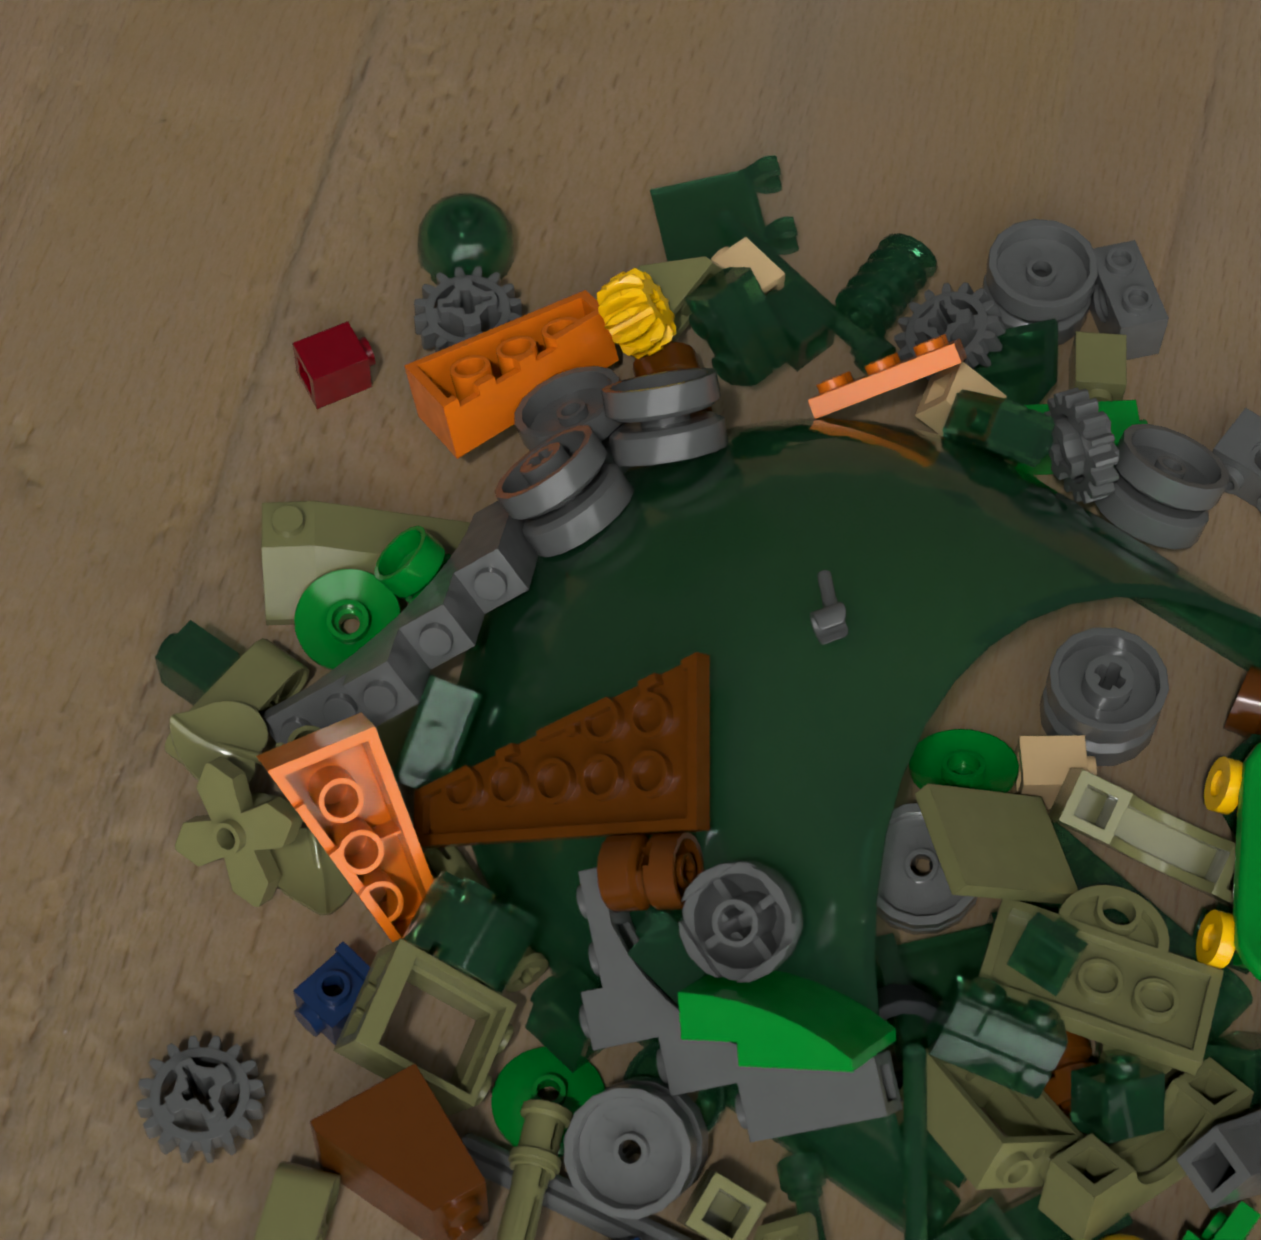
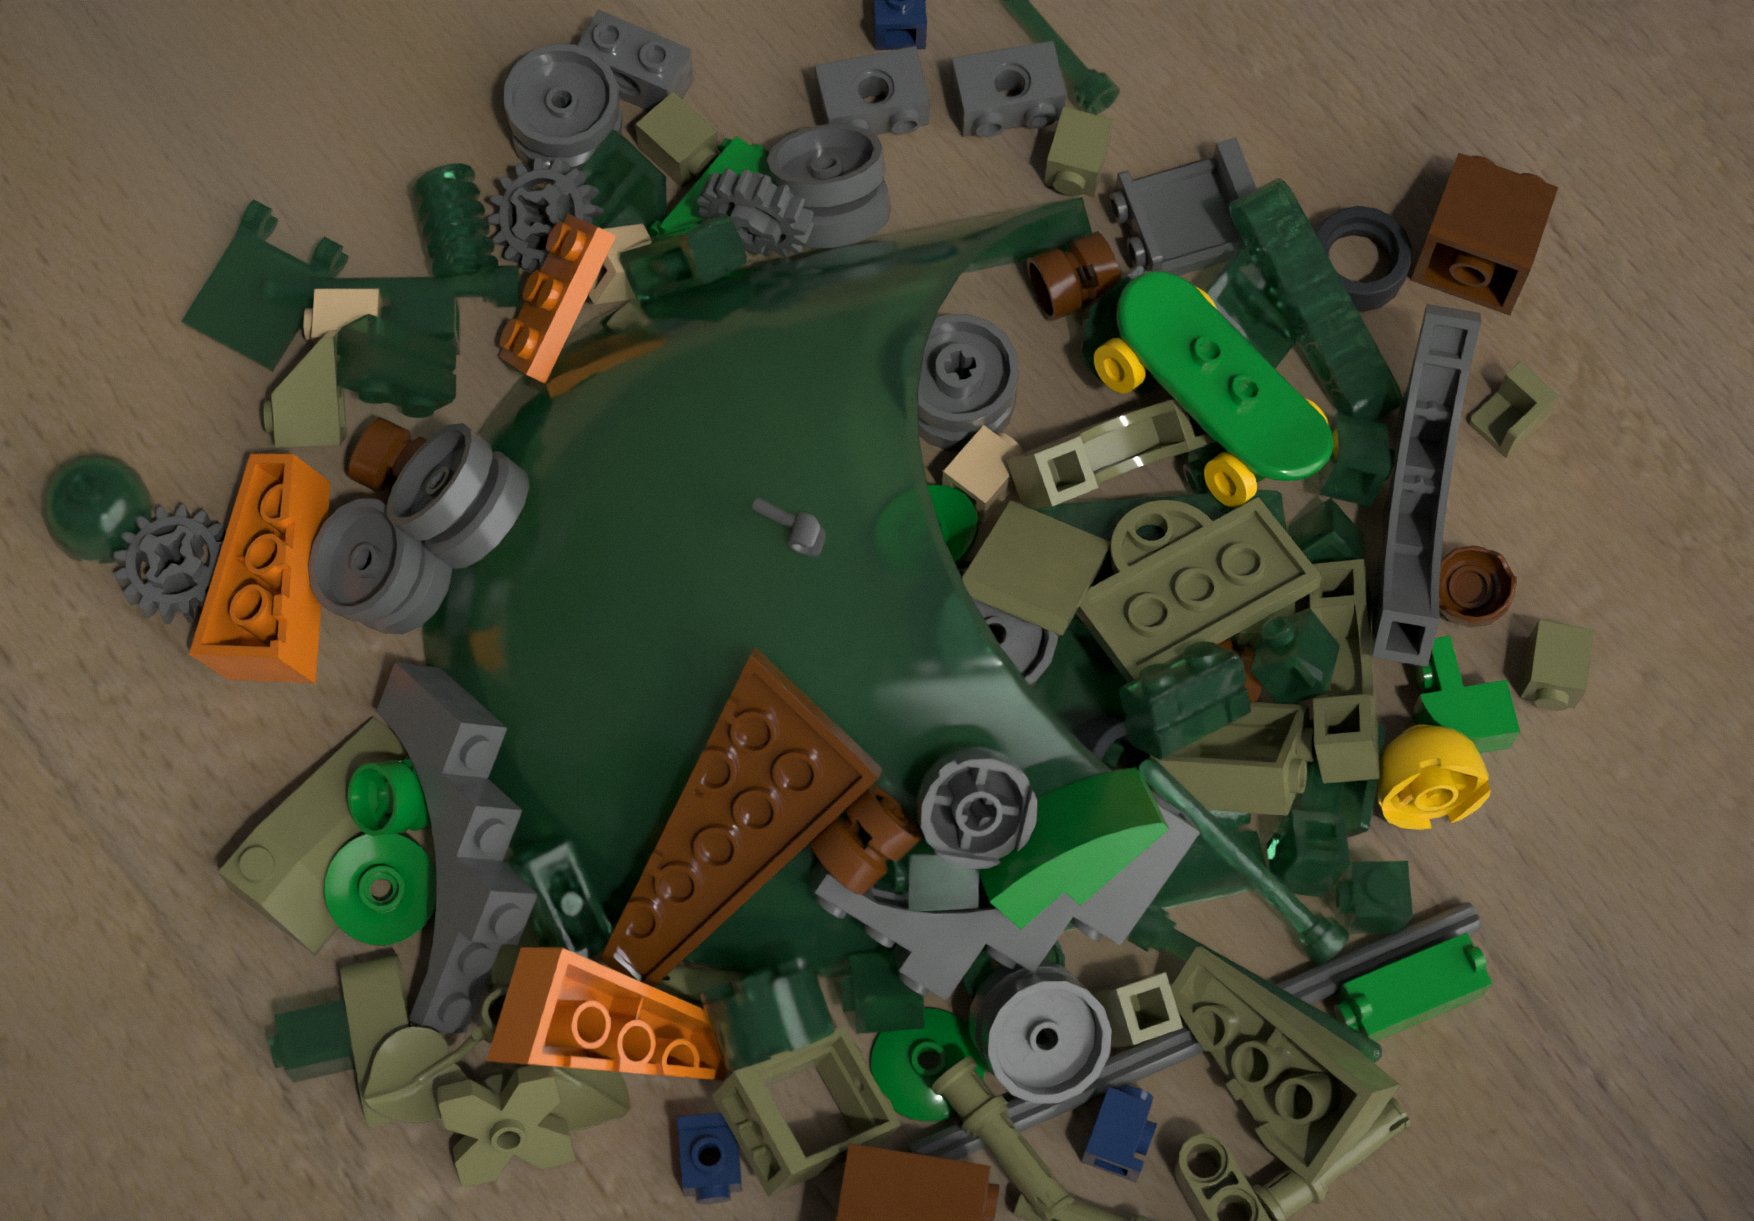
camera: 50 degrees left, 10 degrees up
(334, 364) = (120, 708): dark red brick -> none
(564, 491) = (447, 627): dark grey wheel -> none
(636, 313) = (321, 434): yellow gear -> none
(1048, 952) = (1158, 606): clear green tile -> none

